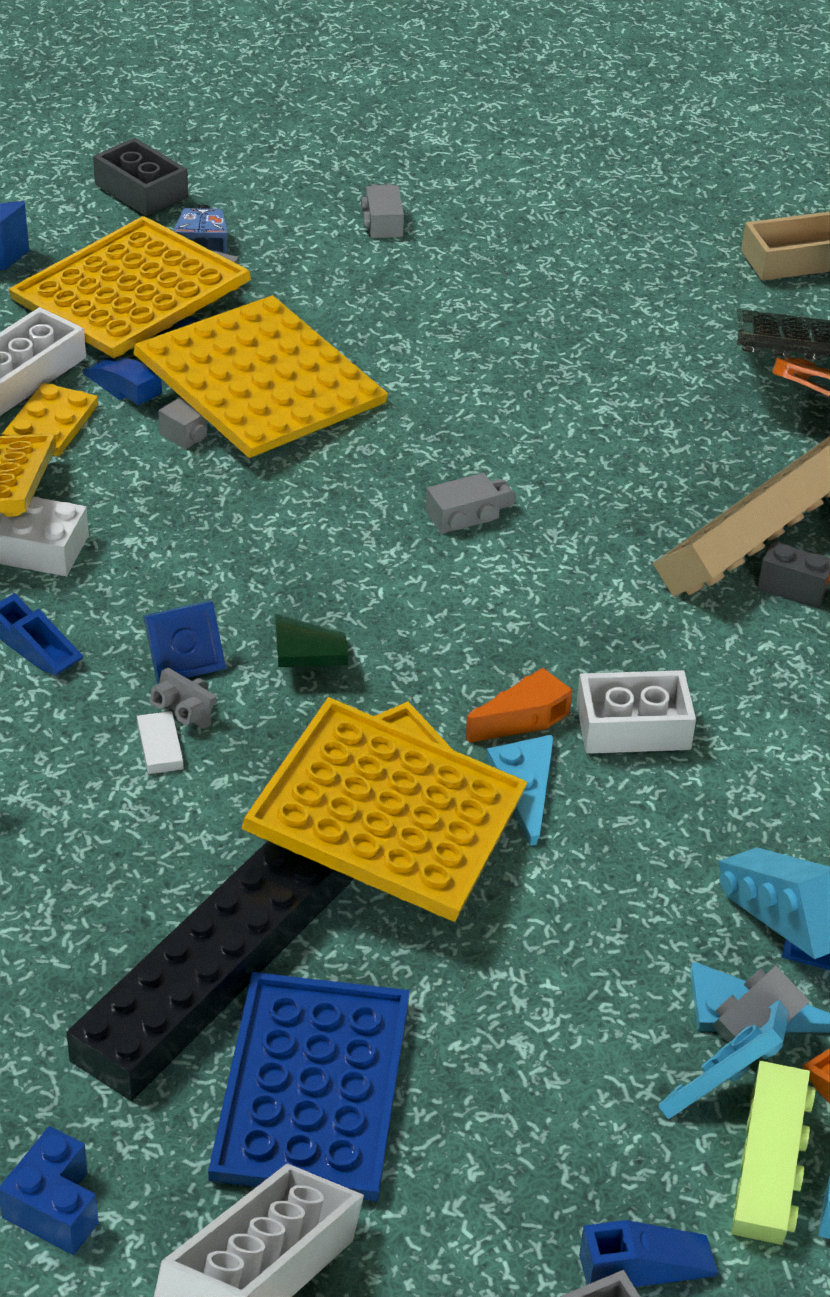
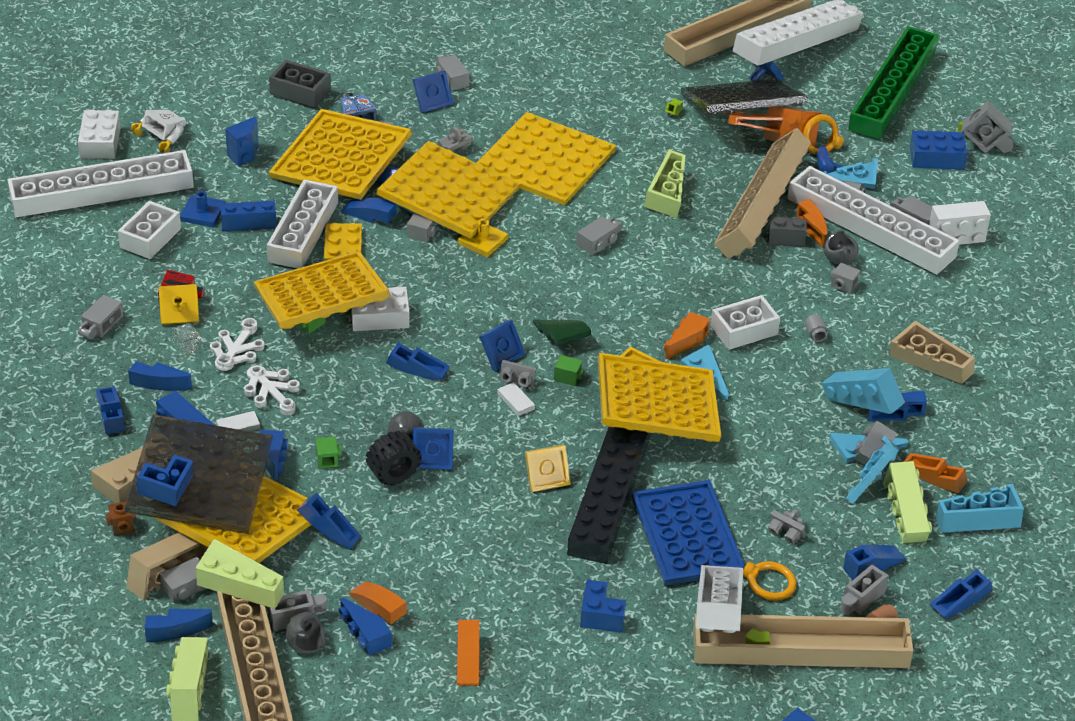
camera: 20 degrees left, 0 degrees up
(122, 882) = (547, 468): none -> yellow tile
(276, 715) = (568, 370): none -> bright green brick
(278, 466) = (485, 240): none -> yellow tile
(322, 304) = (455, 140): none -> light grey hips
(331, 228) = (432, 91): none -> blue tile
(389, 1205) = (752, 570): none -> light orange piece
(458, 366) = (547, 157): none -> yellow plate
(520, 1143) = (790, 522): none -> light grey hips
(625, 449) = (666, 187): none -> yellowish green wedge
(709, 335) = (674, 107): none -> lime piece
(765, 755) = (816, 327): none -> light grey brick

